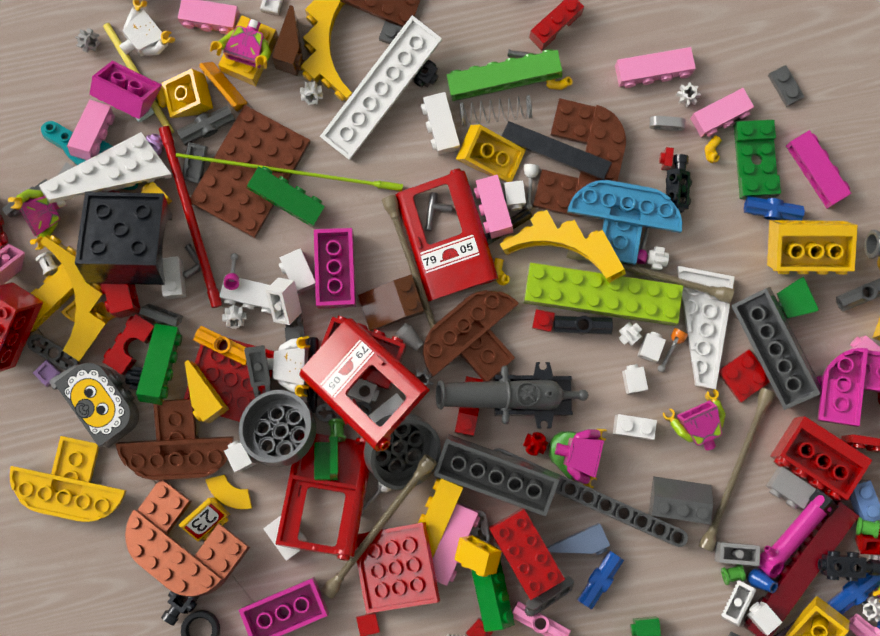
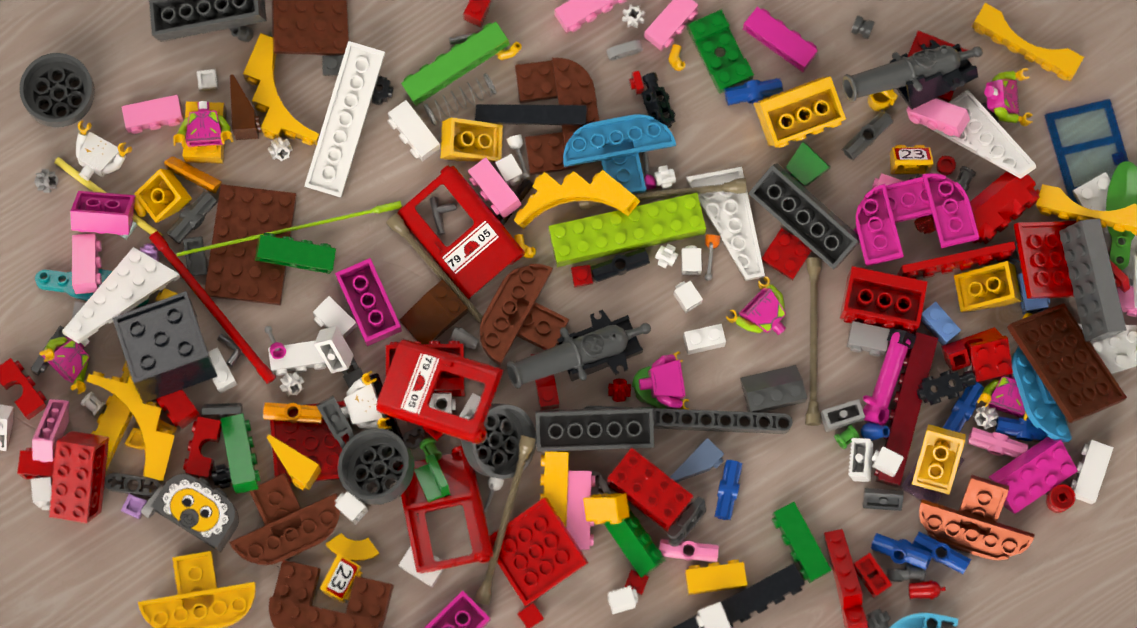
camera: 25 degrees left, 5 degrees down
(867, 527) = (948, 344): bright green bush -> none

